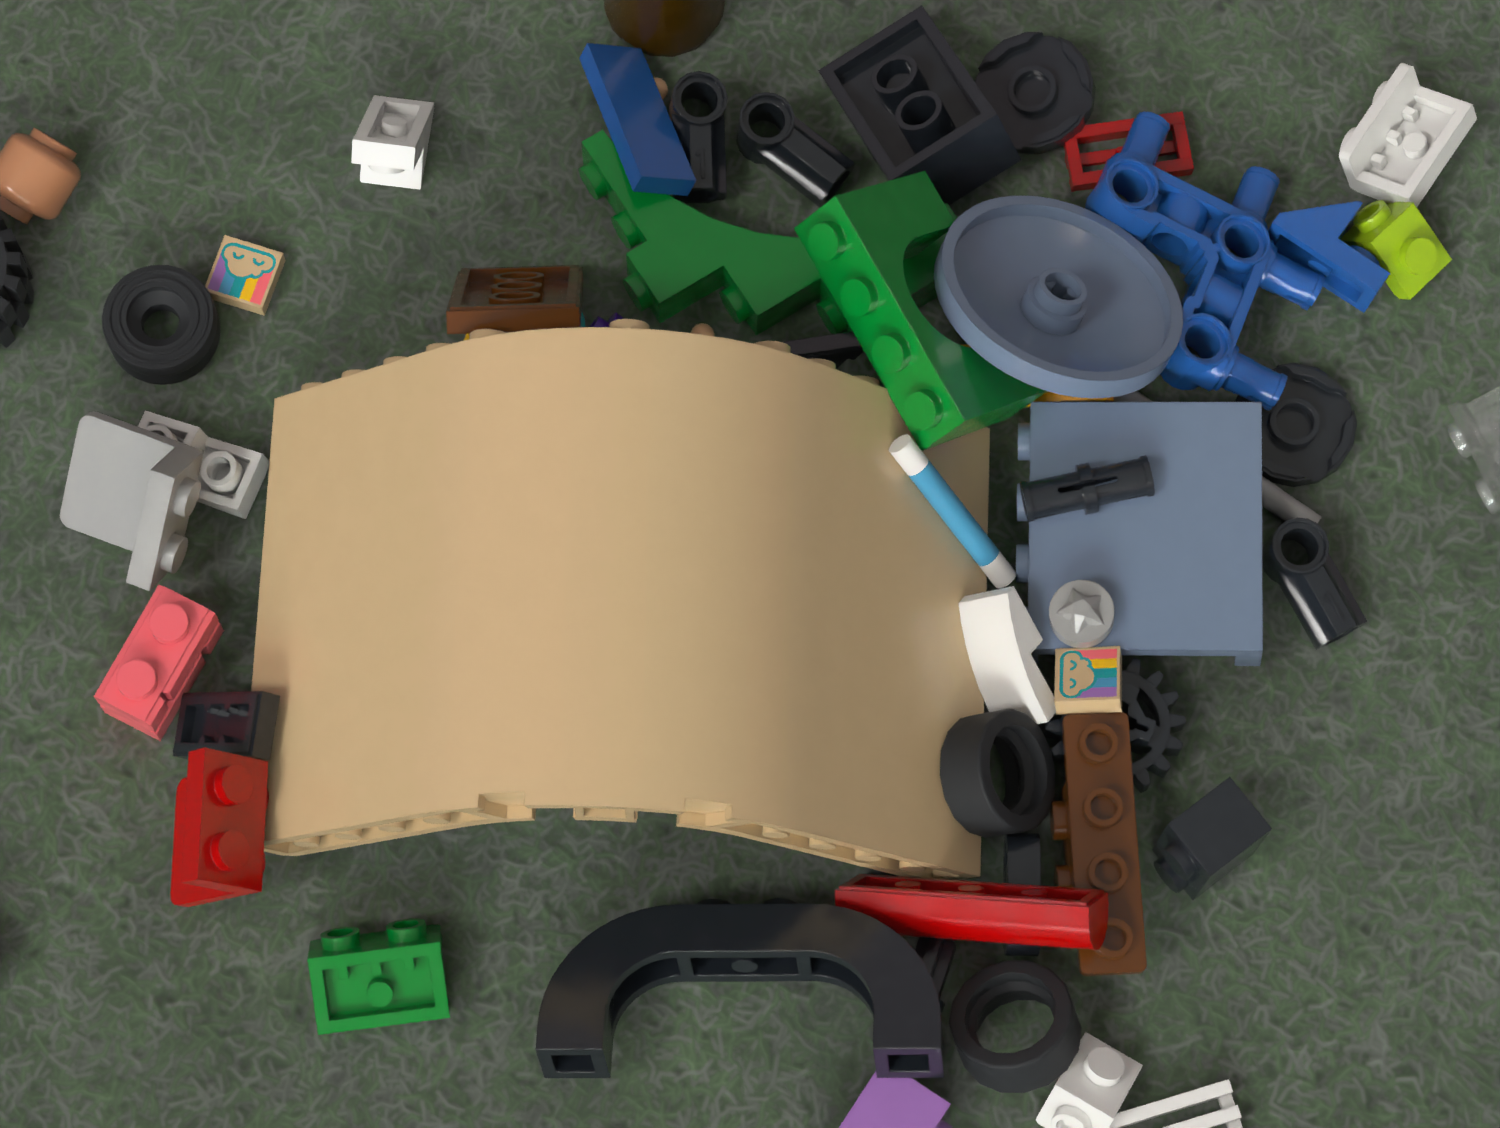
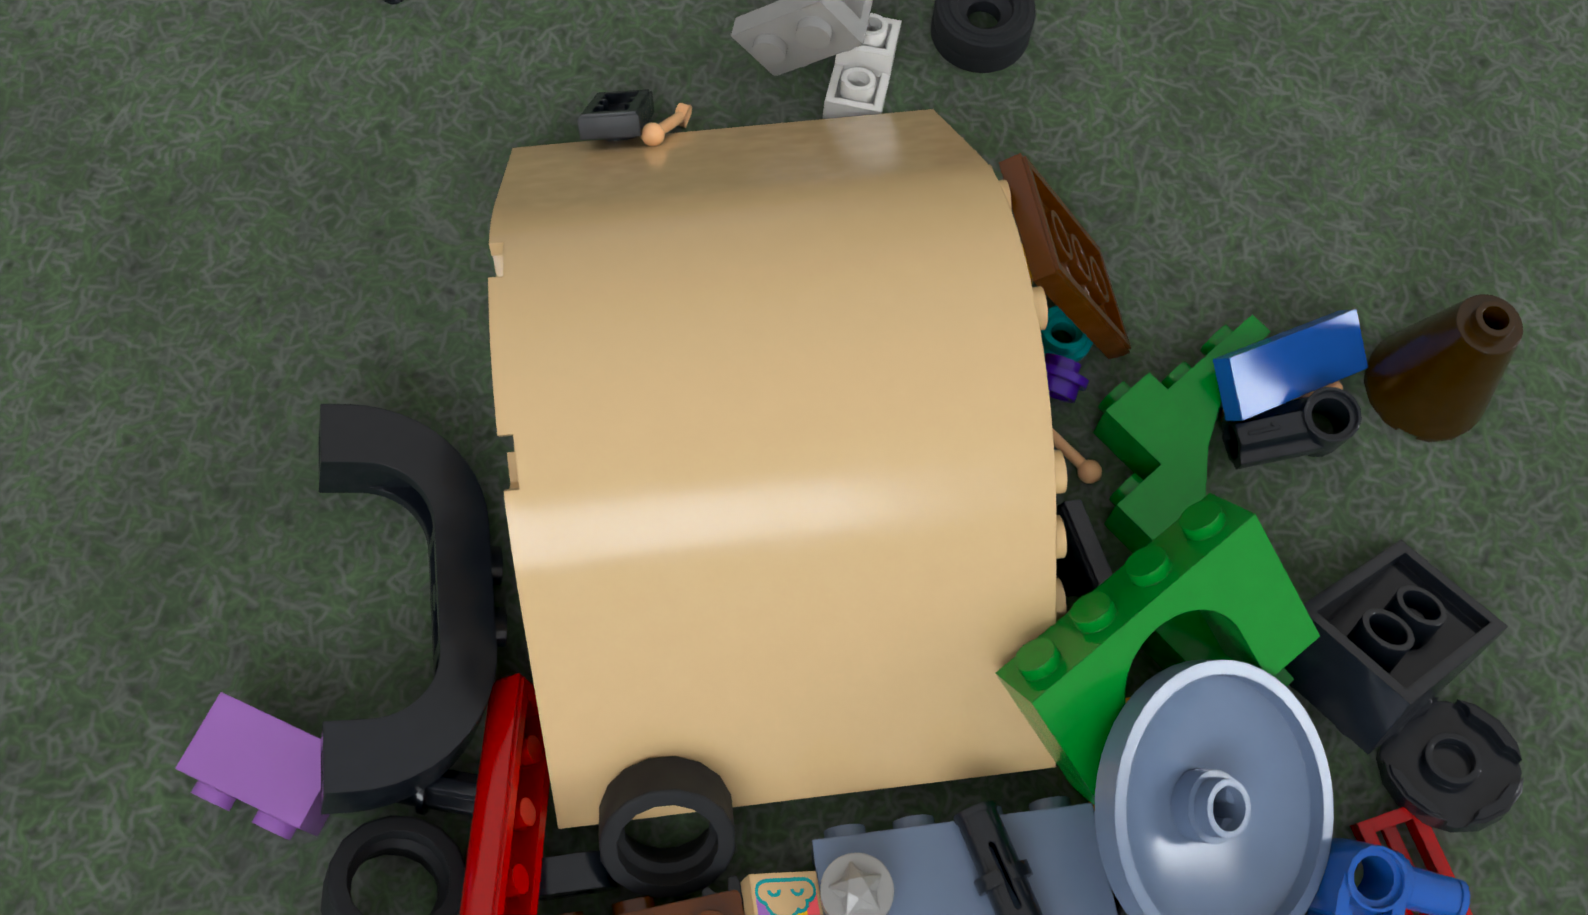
camera: 80 degrees right, 5 degrees down
(159, 662) = (671, 60): coral brick -> none
(219, 828) = (512, 109): red bracket -> none
(245, 275) = (1046, 78): tile -> none
(272, 683) = (654, 133): none -> light nougat hinge
(378, 976) = (407, 281): green bracket -> none
(393, 141) = (1204, 165): white slope -> none
(796, 152) = (1306, 522): black piece -> none
(952, 511) = (944, 726): dark azure bar -> none
(1000, 647) = (805, 808): white slope -> none

